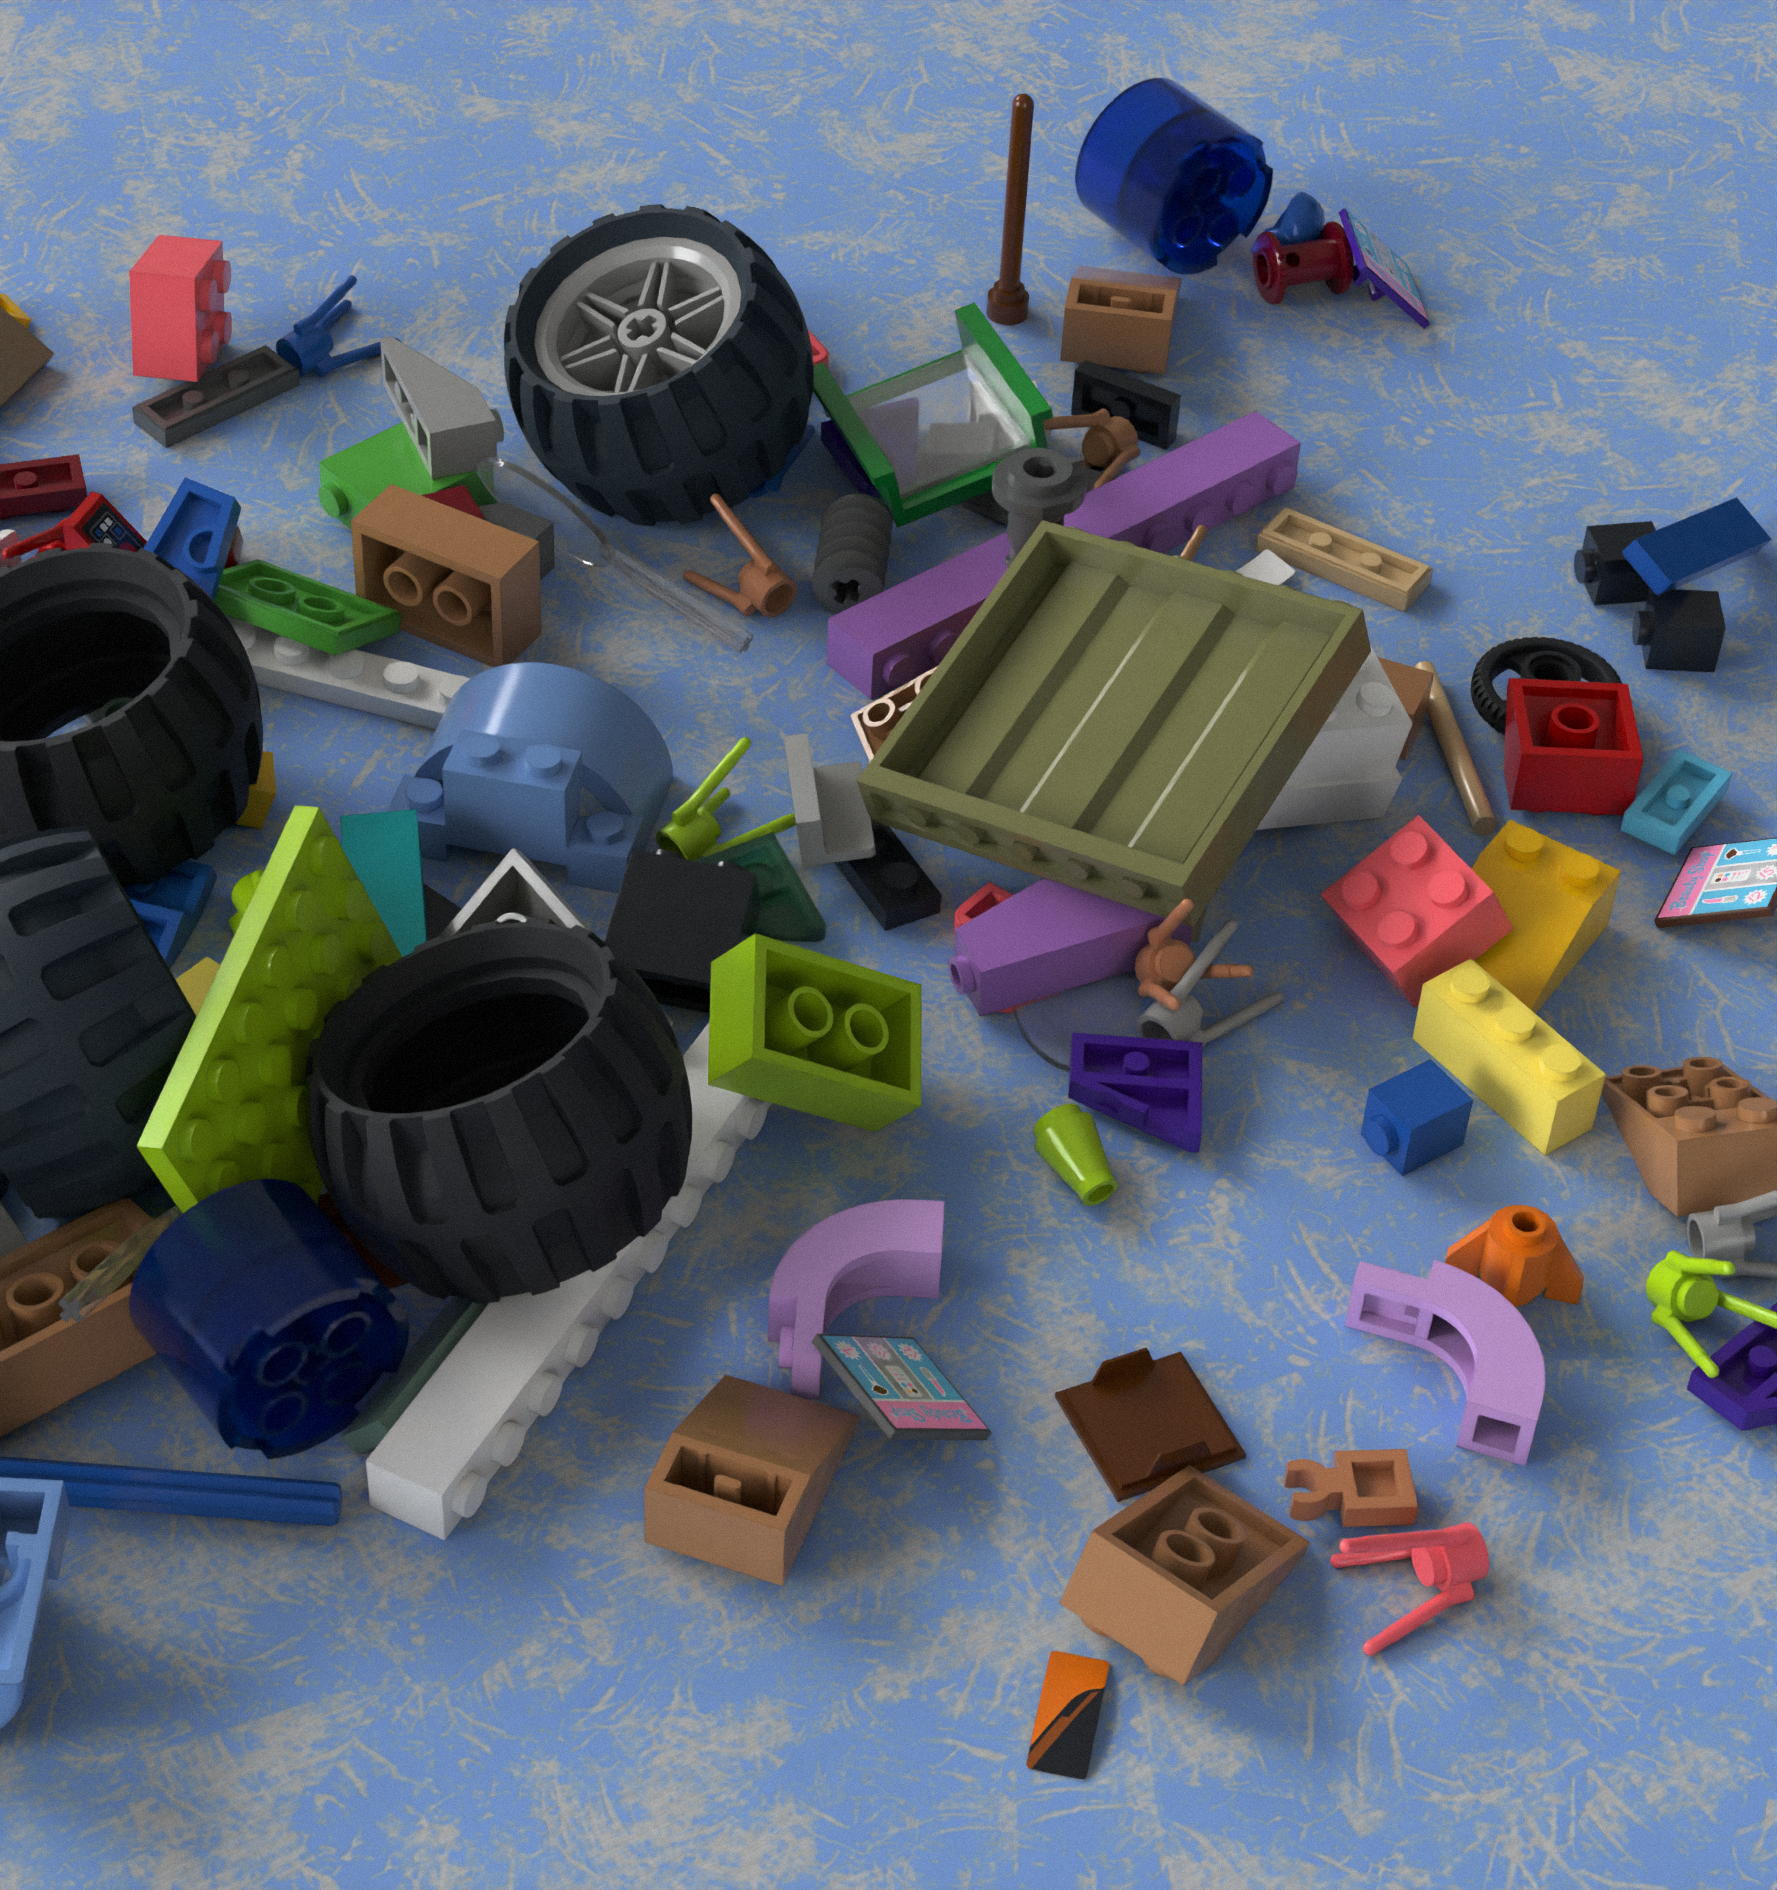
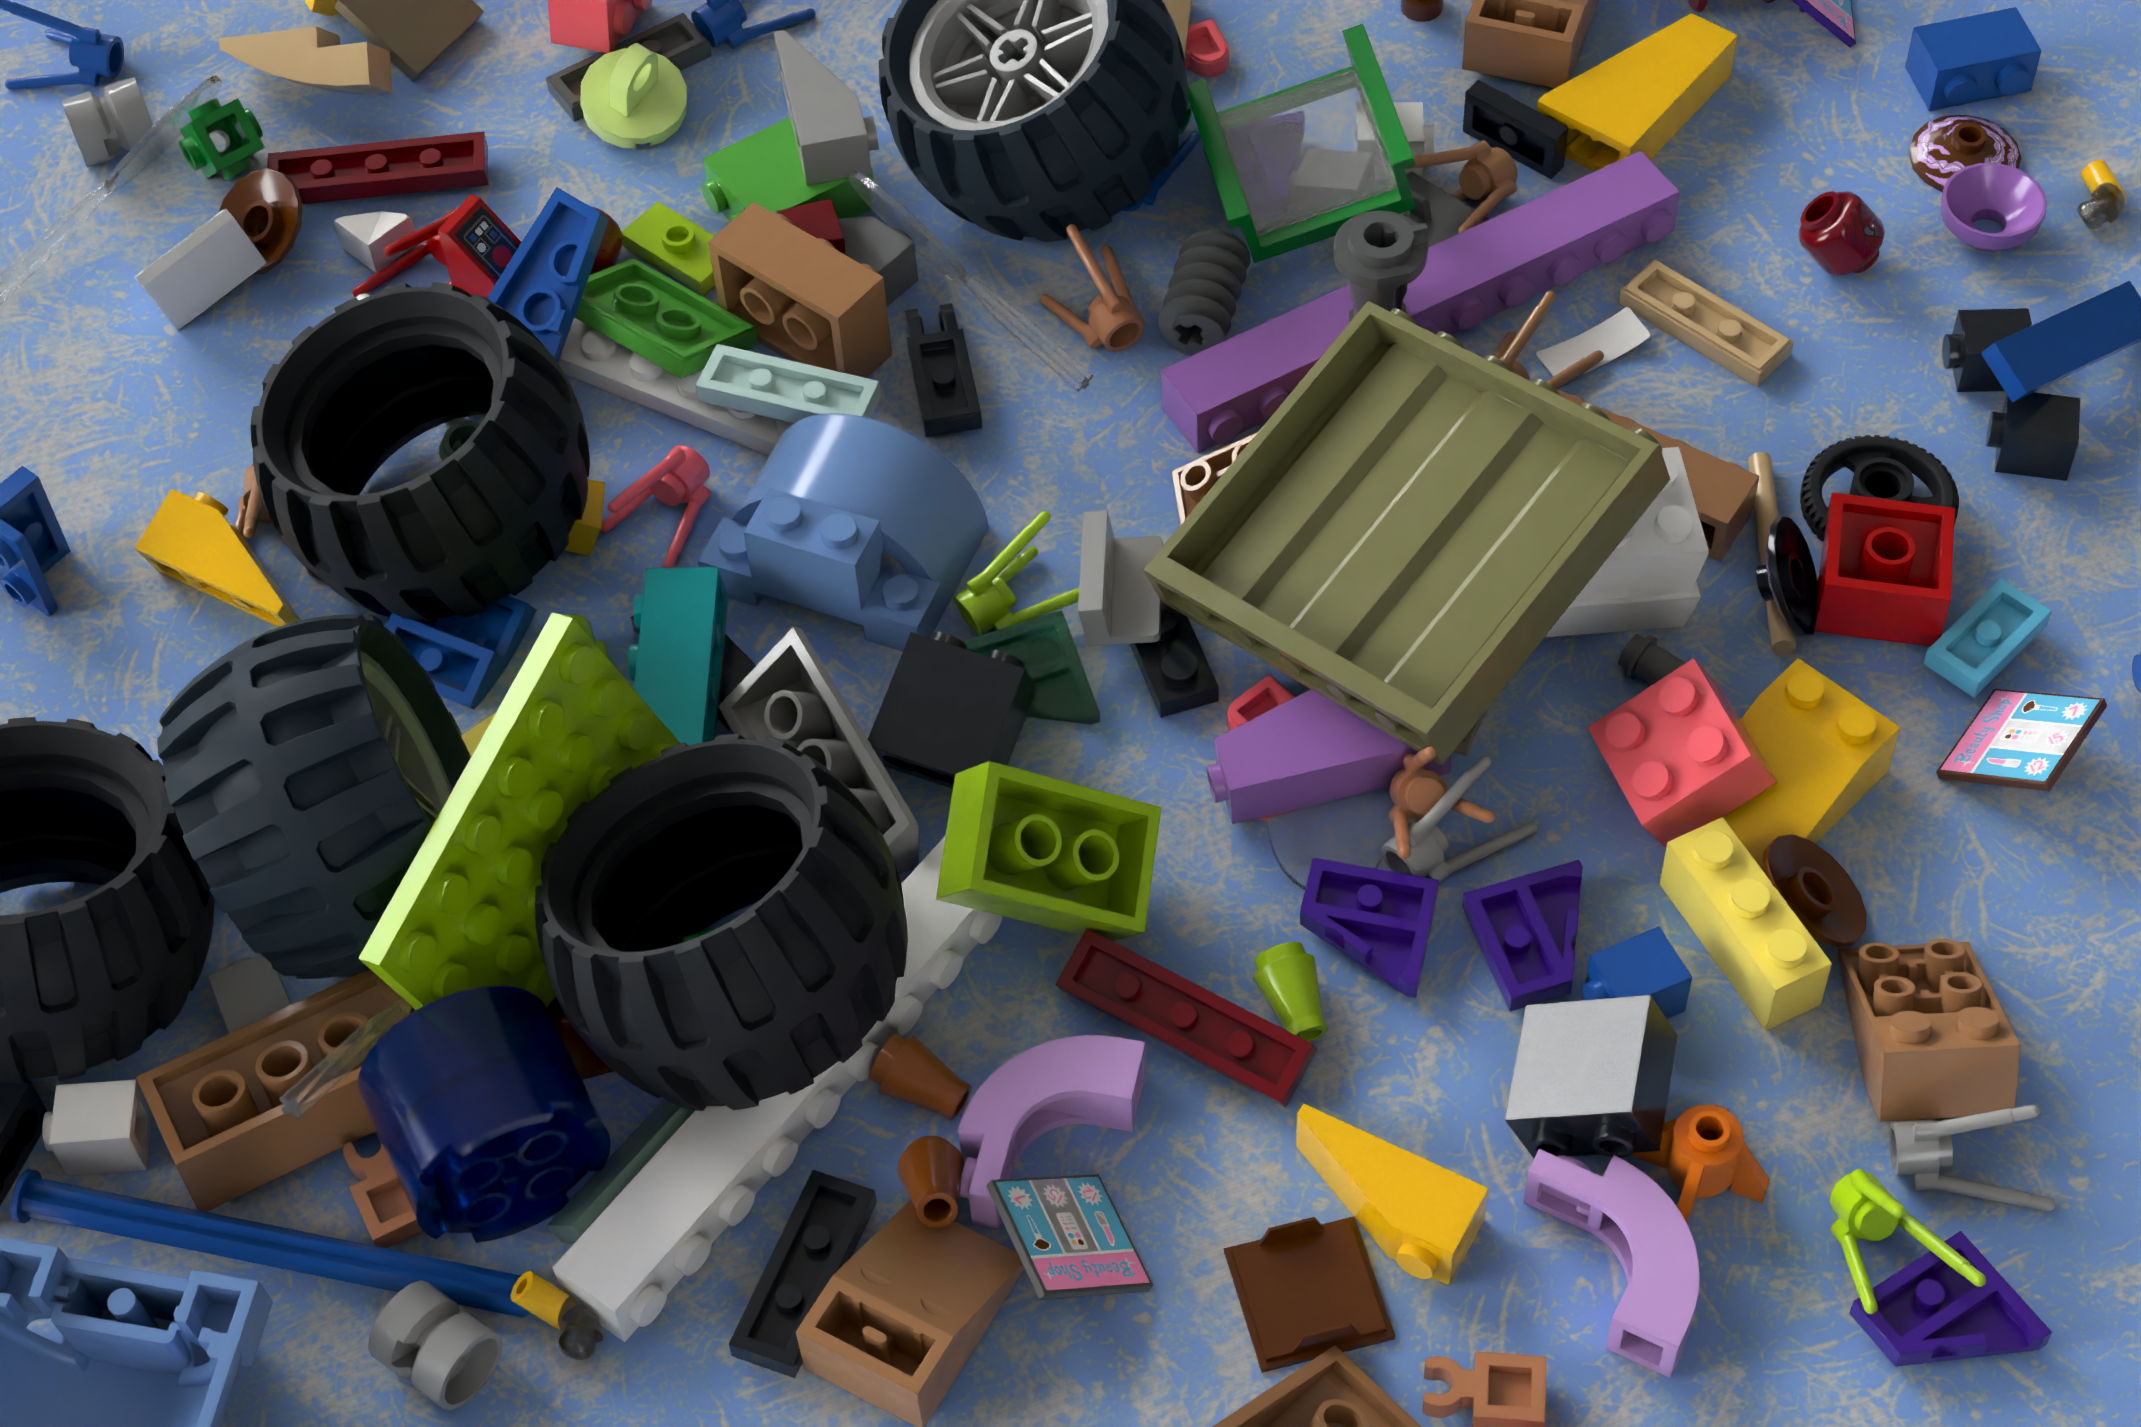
camera: 15 degrees right, 10 degrees up
(163, 1421) = (380, 1198): none -> nougat plate
(230, 416) = (633, 97): none -> yellowish green tile
(244, 1550) = (435, 1345): none -> light grey wheel
(300, 548) = (672, 246): none -> lime plate
(340, 752) = (672, 481): none -> coral plant
(392, 1522) = (578, 1324): none -> arm
(437, 653) = (782, 387): none -> light aqua plate
(601, 638) = (942, 375): none -> black hinge
(624, 1449) = (808, 1253): none -> black plate
(710, 1262) = (917, 1076): none -> dark orange cone
(747, 1348) = (932, 1178): none -> dark orange cone
(975, 1184) = (1186, 1017): none -> dark red plate
(1223, 1324) = (1404, 1202): none -> yellow slope
(1242, 366) = (1642, 92): none -> yellow slope
(1298, 1084) = (1529, 932): none -> dark purple wing
(1355, 840) = (1647, 660): none -> dark grey pin
(1396, 1193) = (1592, 1077): none -> piece
(1459, 472) = (1841, 233): none -> dark red head
(1478, 758) = (1789, 576): none -> black dish
(1545, 327) = (1972, 59): none -> blue brick
(1553, 411) = (1958, 142): none -> reddish brown dish
(1570, 1020) = (1816, 890): none -> reddish brown dish
(1594, 437) = (1994, 194): none -> medium lavender piece
(1695, 435) = (2107, 195): none -> clear smoke arm

